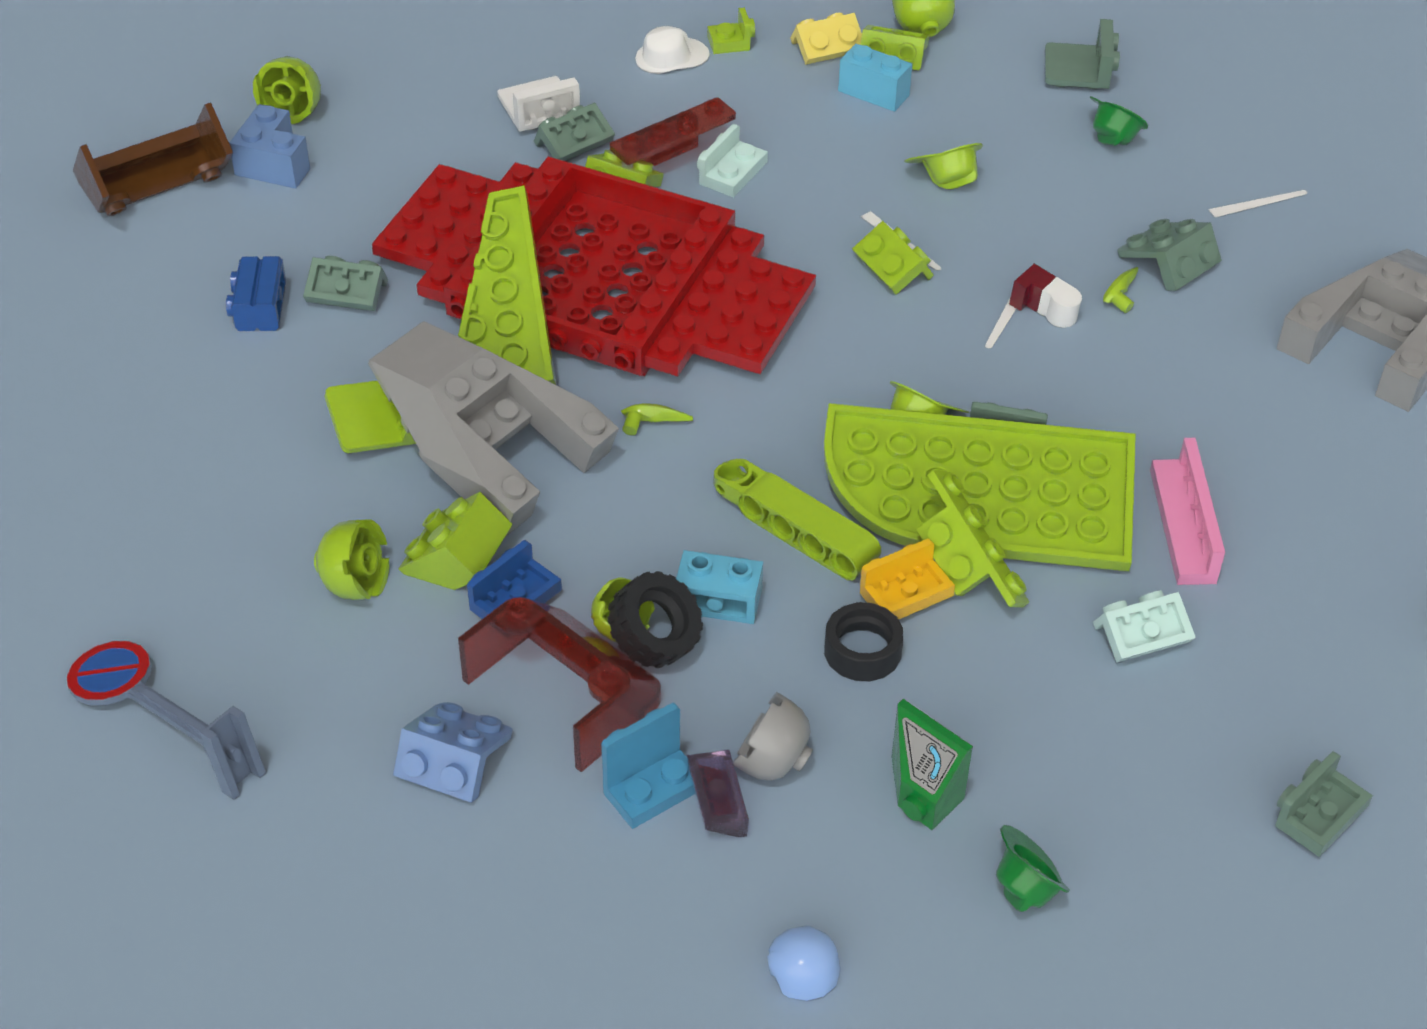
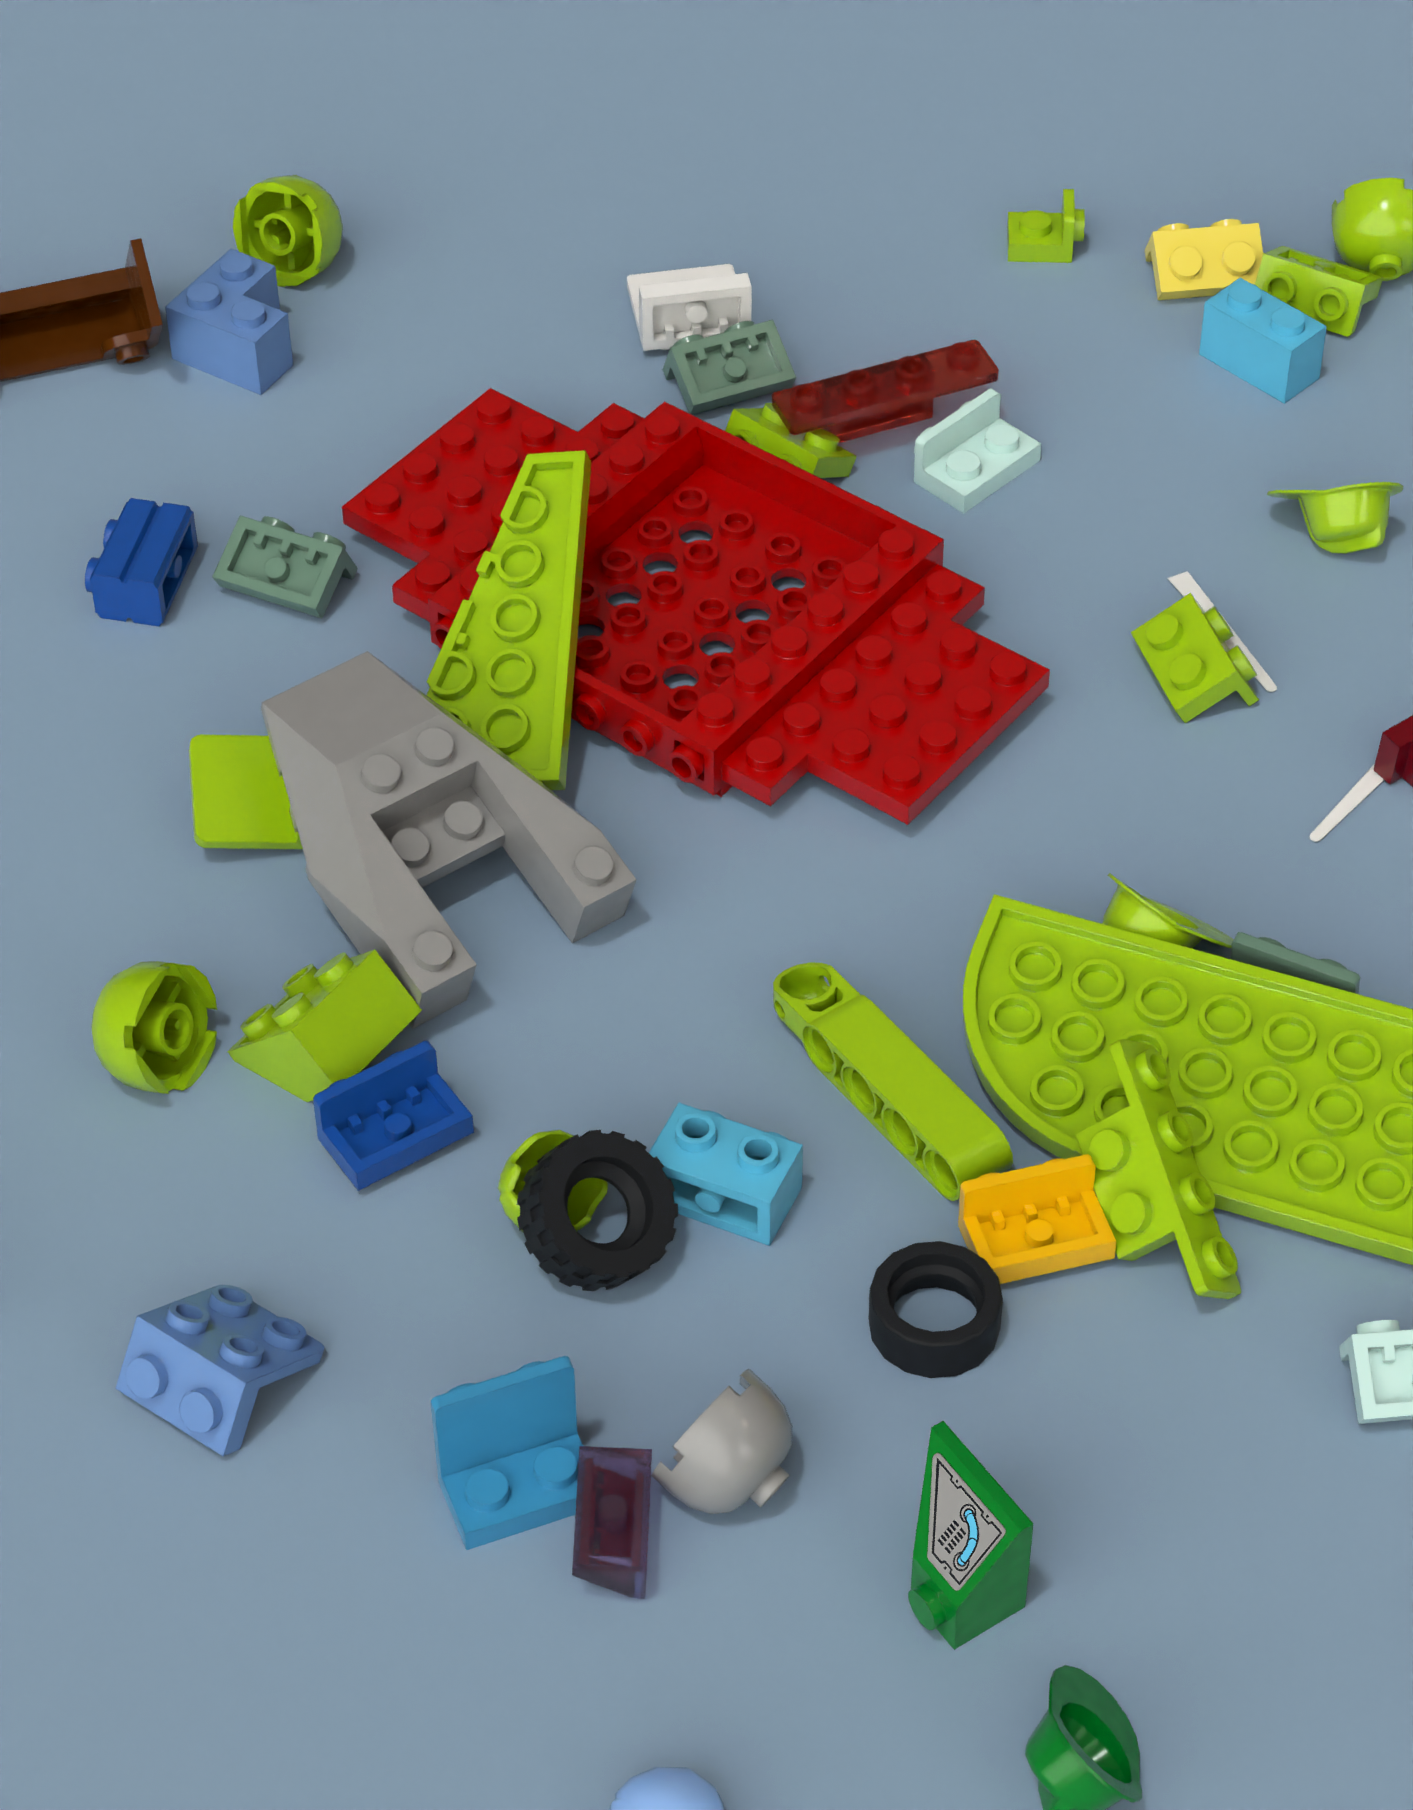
camera: 15 degrees right, 0 degrees up
(613, 679) = (500, 1303): clear red windscreen -> none
(652, 413) = (708, 861): lime bar -> none
(670, 49) = (935, 245): white piece -> none

